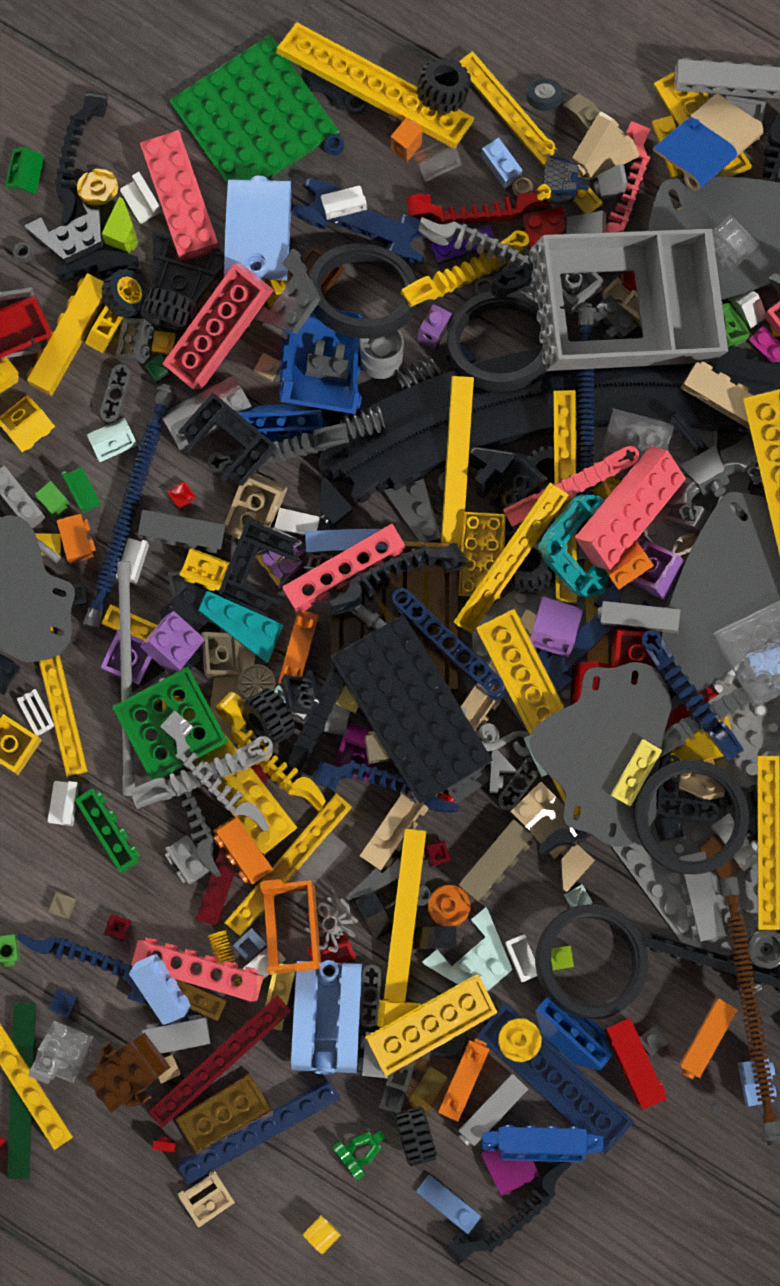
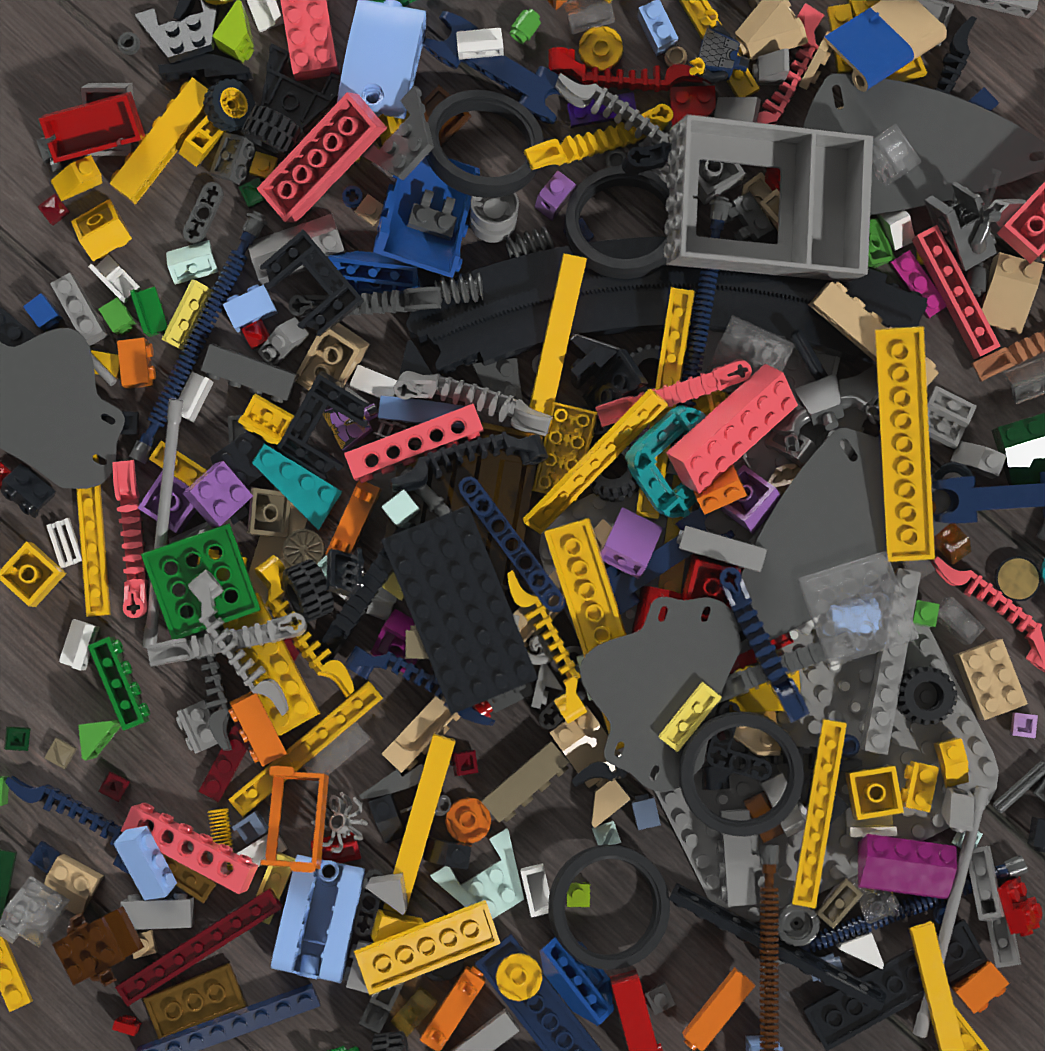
camera: 10 degrees right, 5 degrees up
(20, 898) = (17, 738): none -> dark green tile
(44, 465) = (115, 278): none -> white panel
(94, 1021) = (74, 882): none -> tan slope
(95, 881) = (96, 736): none -> bright green slope
(99, 704) = (127, 493): none -> coral piece
(115, 487) = (186, 314): none -> light yellow plate
(172, 471) = (249, 307): none -> light blue brick
(207, 498) = (283, 342): none -> light grey slope
(244, 361) = (347, 190): none -> blue bush
(342, 628) = (401, 508): none -> light aqua panel
(381, 180) = (525, 26): none -> bright green brick
(388, 978) = (390, 890): none -> light grey slope
(437, 528) = (425, 386): none -> light grey piece
(453, 189) = (600, 48): none -> yellow tile
(524, 780) = (568, 703): none -> yellow piece
(610, 870) = (645, 811): none -> sand blue brick
(653, 167) = (820, 57): none -> tan plate

